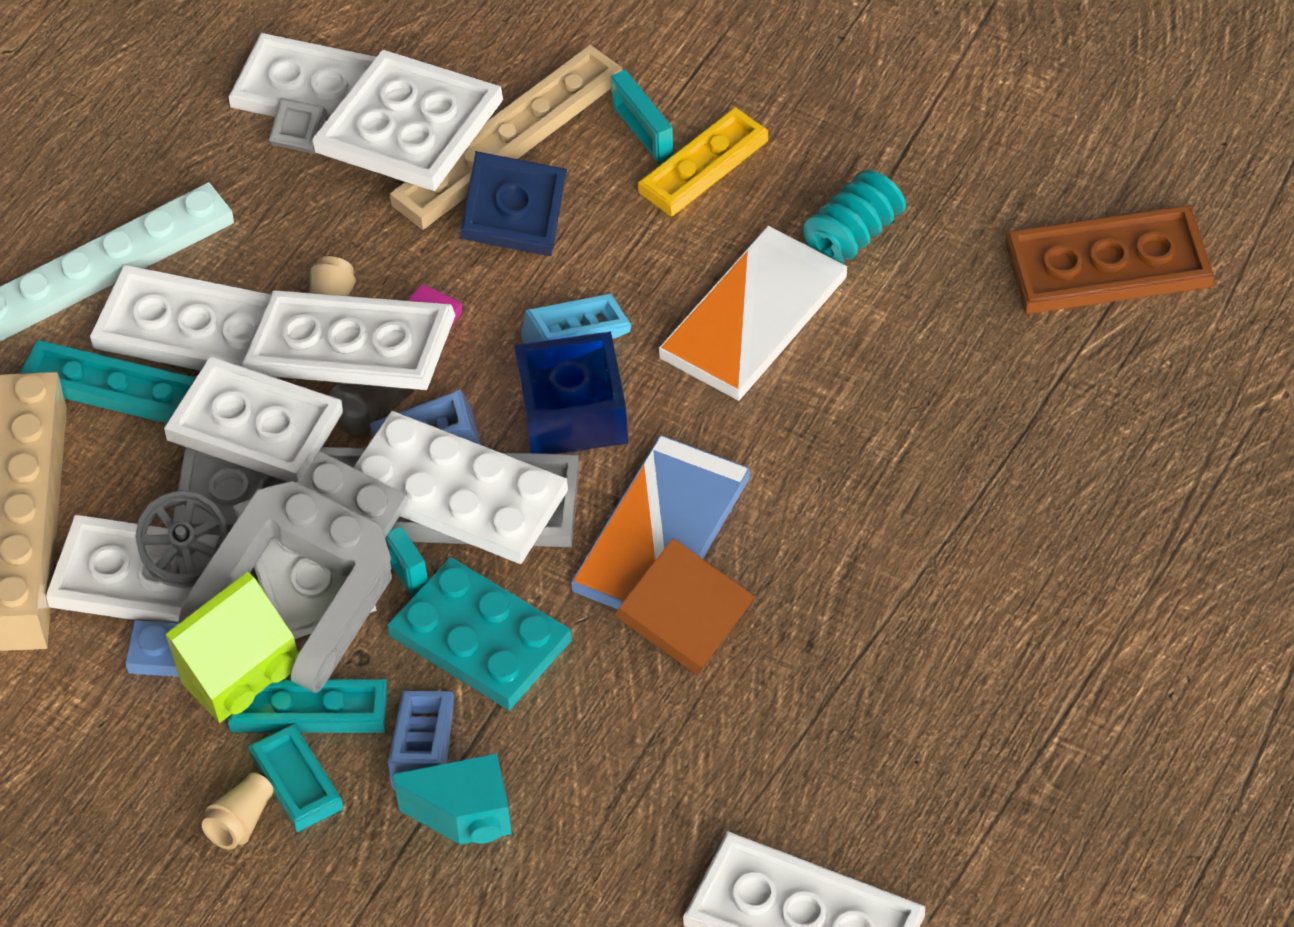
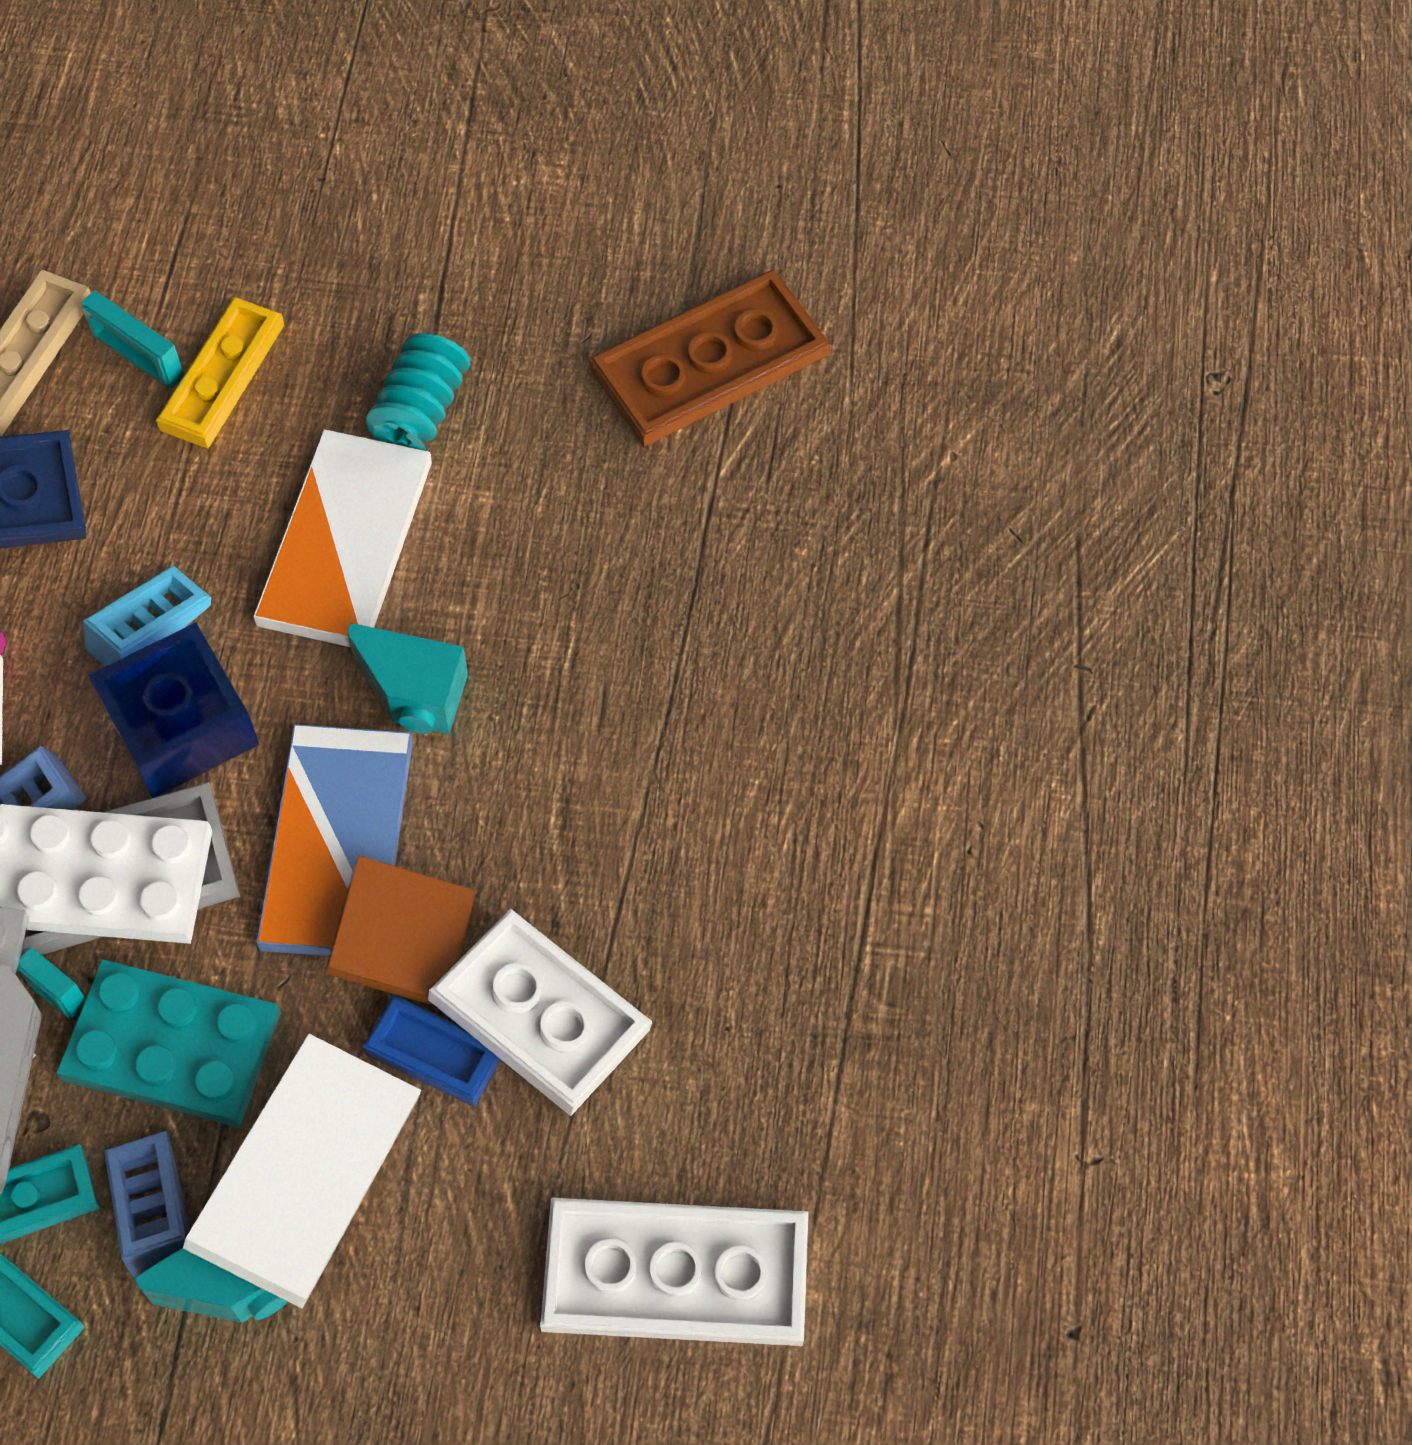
camera: 25 degrees left, 10 degrees up
(546, 743) = (302, 1171): none -> white tile
(678, 702) = (431, 1050): none -> blue tile
(767, 427) = (411, 676): none -> teal slope
(771, 697) = (540, 1011): none -> white tile

